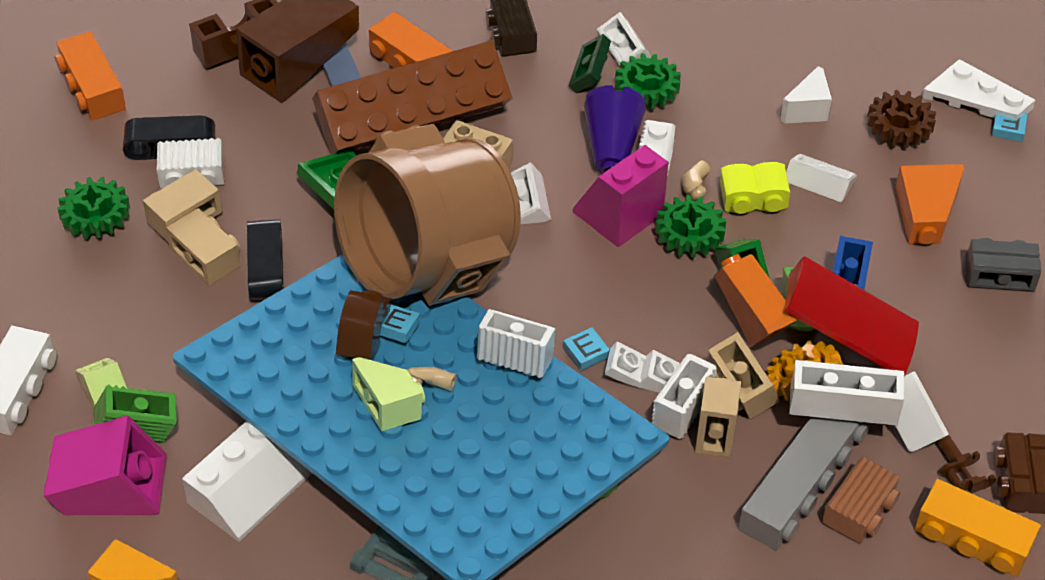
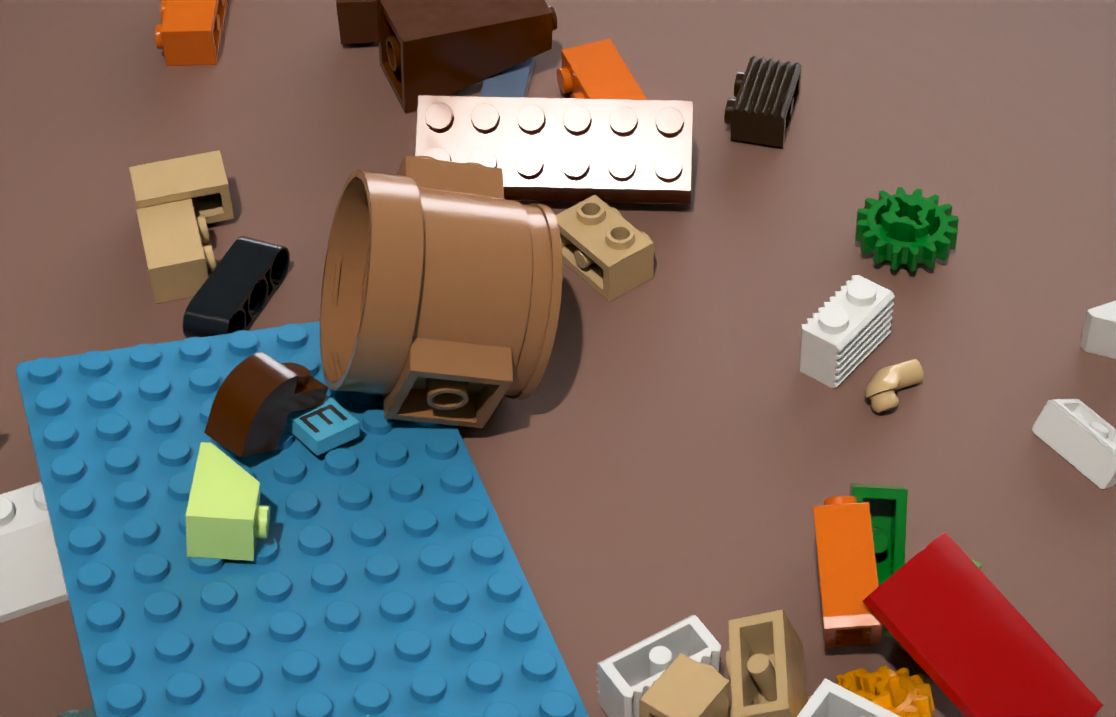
camera: 30 degrees right, 5 degrees down
(78, 208) = (82, 162): green gear -> none
(144, 133) = (232, 109): black beam -> none
(182, 157) = (247, 146): white brick -> none
(433, 376) = (306, 507): tan arm -> none
(515, 343) = (446, 505): white brick -> none
(531, 194) = (640, 327): white slope -> none
(586, 348) = (578, 559): medium azure tile -> none
(590, 64) = (847, 176): dark green plate -> none
(613, 123) = (807, 268): dark purple cone -> none
(623, 39) = (913, 164): white slope -> none
(626, 196) = (761, 367): dark pink slope -> none
(638, 370) = (626, 609): white slope -> none
(690, 226) = (838, 442): green gear -> none
(754, 187) = (970, 421): neon yellow brick -> none
(853, 260) = (1043, 580): blue brick -> none

